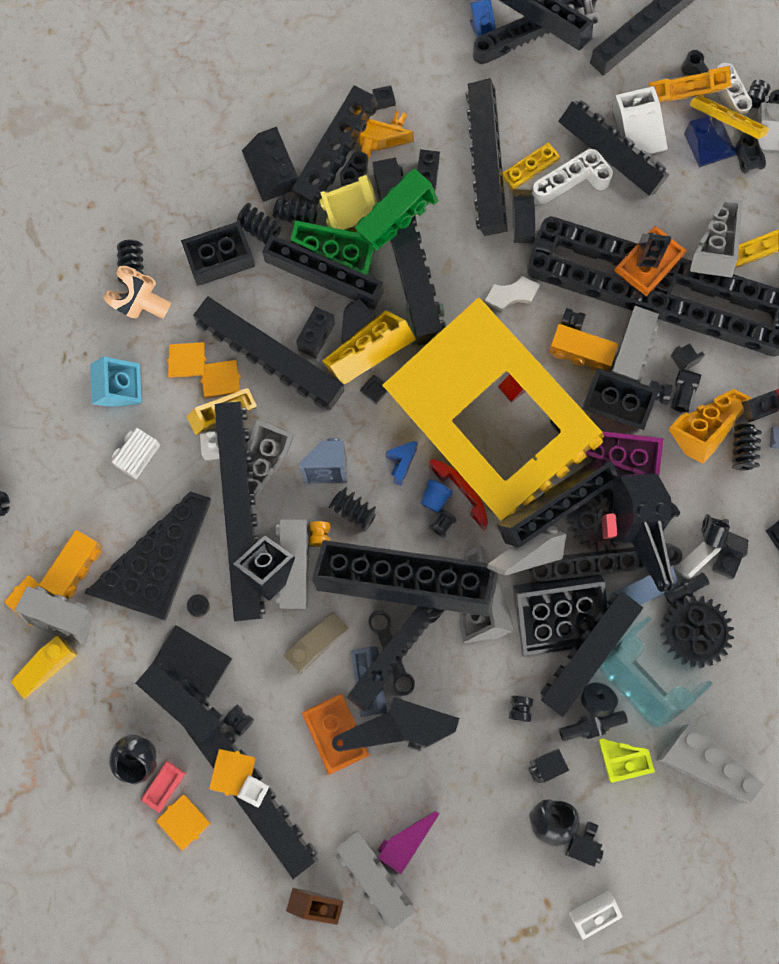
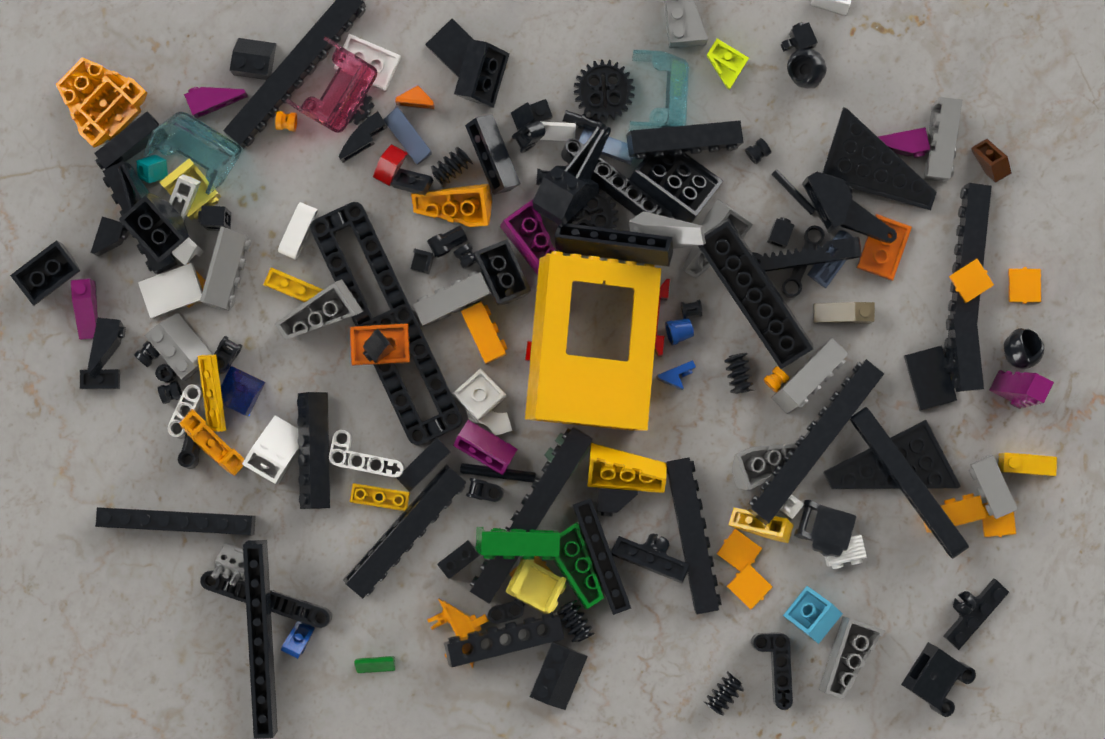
camera: 140 degrees left, 10 degrees up
(58, 380) = (848, 655): none -> light grey wedge
(102, 717) = (1021, 388): none -> magenta wedge
(104, 318) = (777, 671): none -> black beam
(130, 550) = (909, 483): none -> black beam
(138, 296) = (743, 662): light nougat connector -> none
(161, 456) = (830, 530): none -> black piece
(163, 786) = (1017, 318): coral tile -> none
(198, 605) = (894, 409): black tile -> none
(218, 253) = (659, 641): black brick -> none
(238, 720) = (936, 311): black wheel -> none
(253, 791) = (969, 257): white tile -> none
(256, 224) = (610, 637): black piece -> none
(266, 567) = (834, 385): black slope -> none
(283, 306) = (651, 556): none -> black plate
(315, 332) = (647, 518): black brick -> none
(325, 463) = (731, 415): sand blue slope -> none
(374, 389) = (645, 442): black tile -> none
(384, 97) = (425, 652): black tile -> none
(412, 57) = (375, 664): none -> green slope
(419, 790) = (872, 166): none -> black wing
(433, 657) = (780, 232): none -> black brick
(457, 705) = (793, 191): none -> black bar
(462, 238) = (483, 490): none -> black piece
(463, 261) = (488, 472): none -> black axle
(492, 267) = (485, 447): none -> magenta brick
(537, 301) = (479, 395): none -> white tile
(548, 766) = (778, 101): black brick -> none
(577, 320) = (466, 355): black wheel -> none
(591, 702) = (698, 109): black piece -> none
(592, 726) = (725, 99): black pin -> none
(609, 526) = (598, 199): coral tile -> none
(726, 488) = (492, 154): none -> black brick

